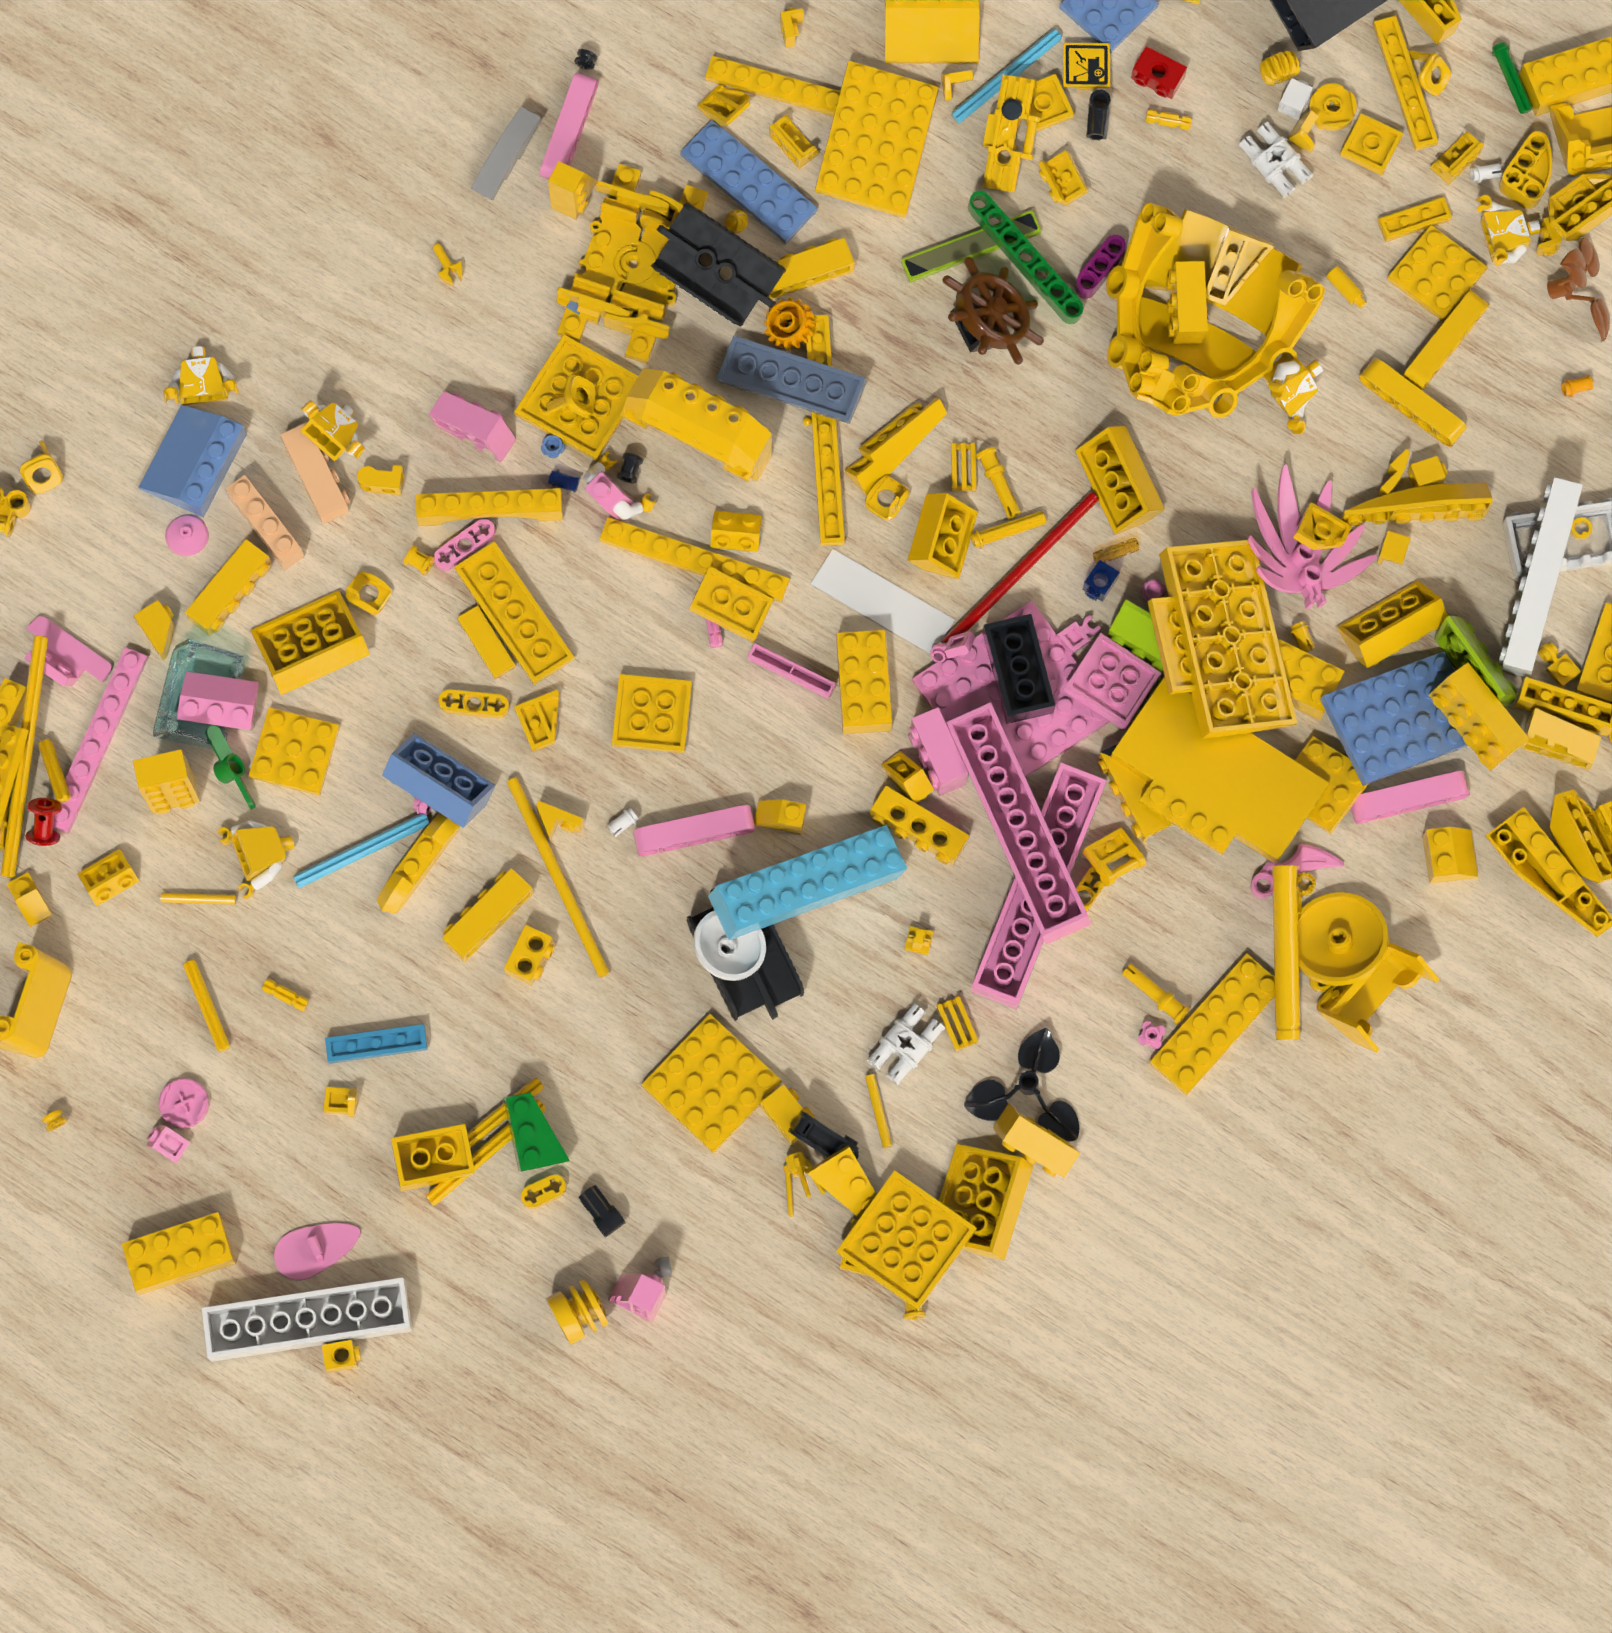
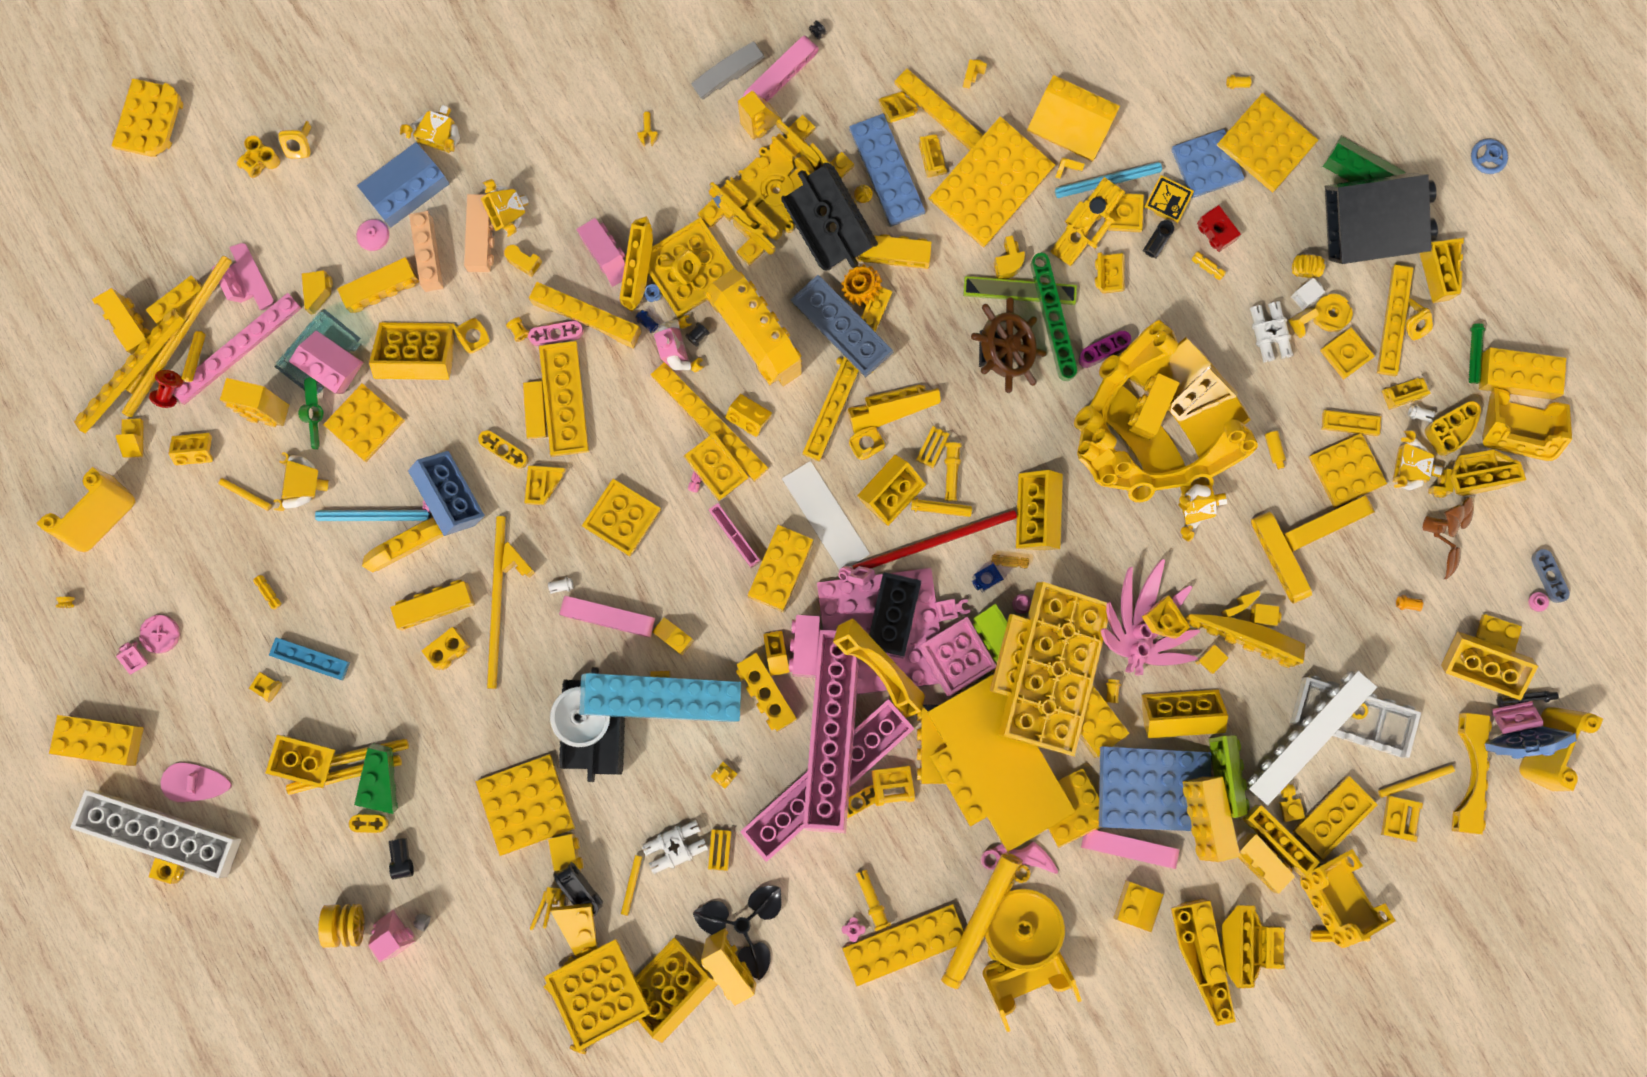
camera: 30 degrees right, 5 degrees up
(206, 1005) = (210, 573): yellow axle -> none
(520, 420) = (636, 263): none -> yellow brick
(946, 220) = (1012, 262): none -> yellow brick
(1004, 713) = (856, 642): none -> yellow arch

